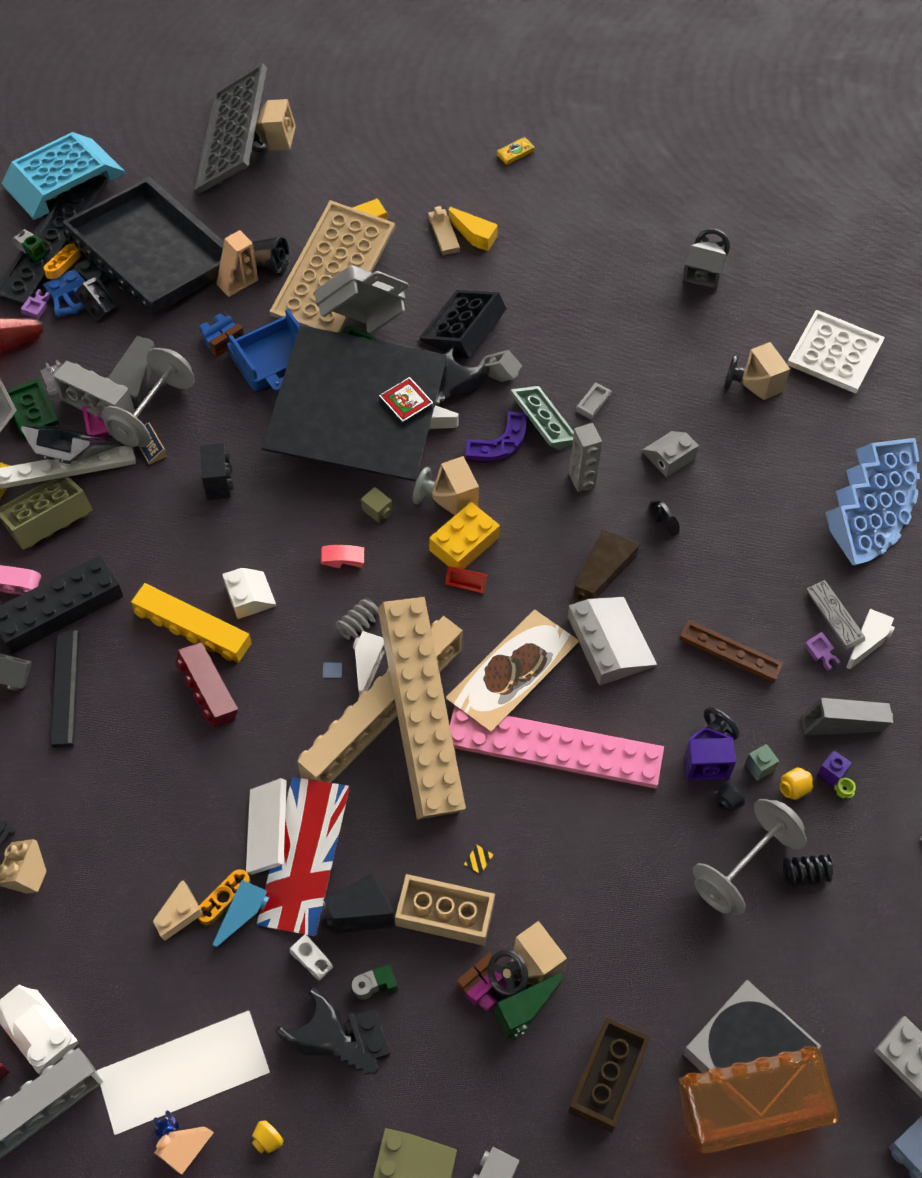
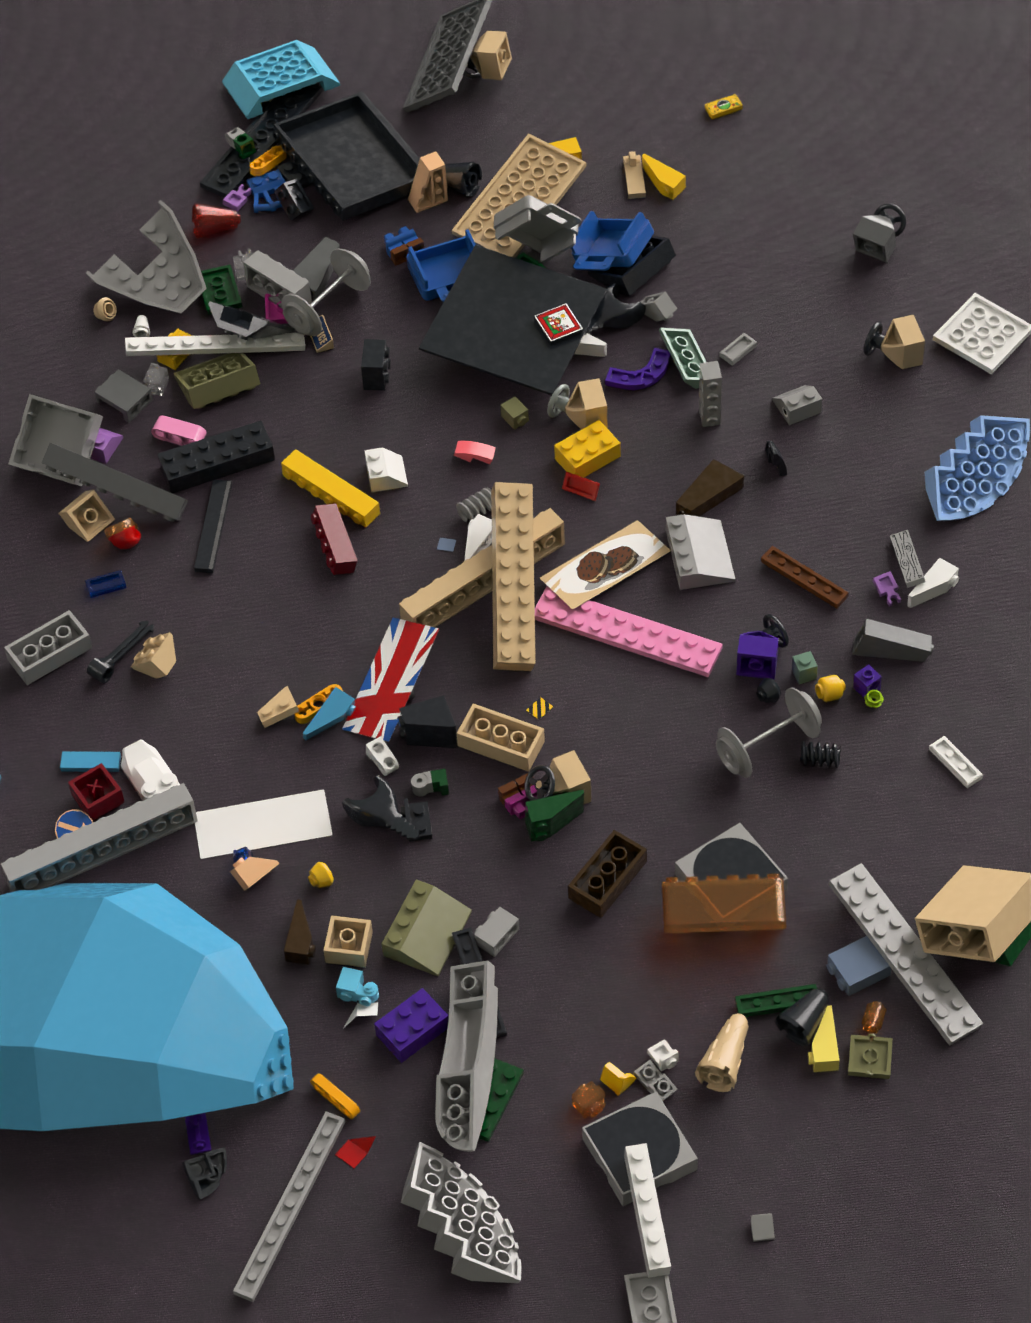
camera: 15 degrees right, 5 degrees down
(266, 827) = (364, 654): white tile -> none
(439, 304) = (610, 242): none -> blue piece

